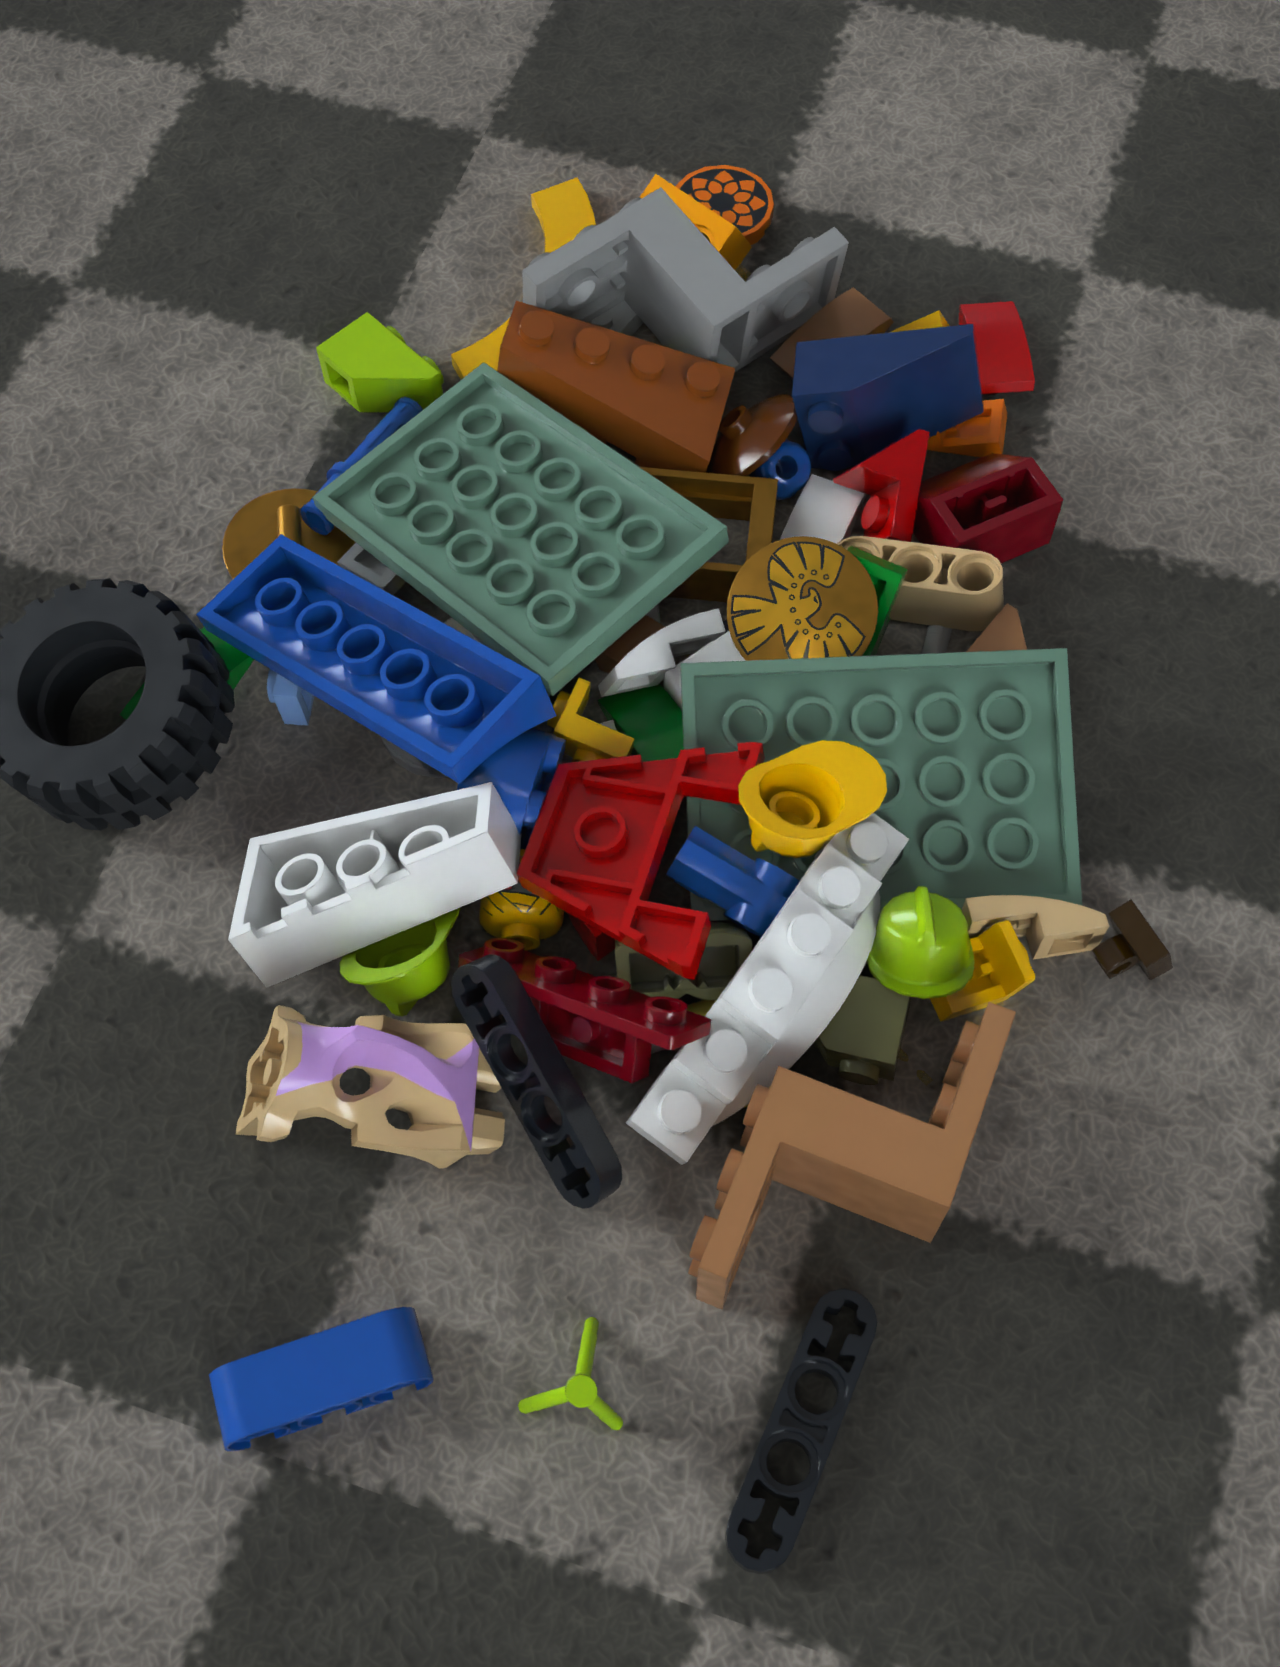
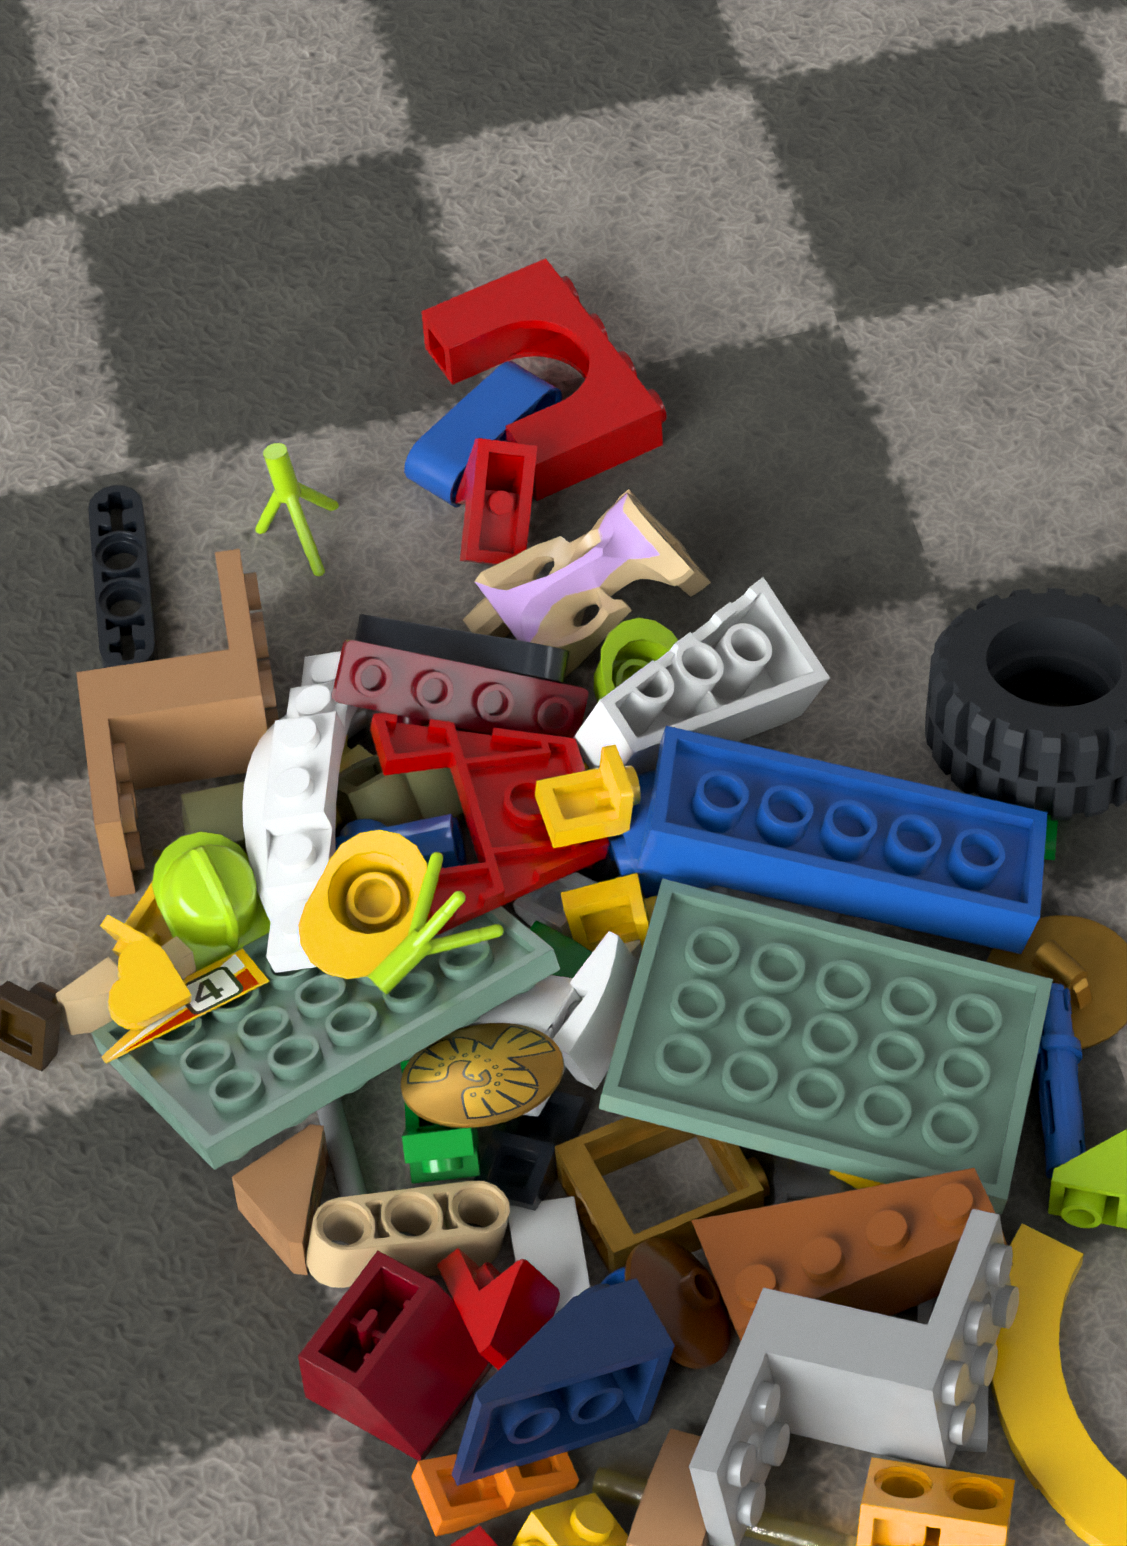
camera: 150 degrees right, 10 degrees down
(144, 1509) = (542, 316): none -> red arch
(382, 1242) = (497, 500): none -> red slope
(559, 770) = (589, 802): none -> yellow bracket
(786, 724) = (419, 942): none -> lime plant
(986, 866) = (209, 990): none -> sticker
(1028, 876) = (145, 987): none -> yellow tile

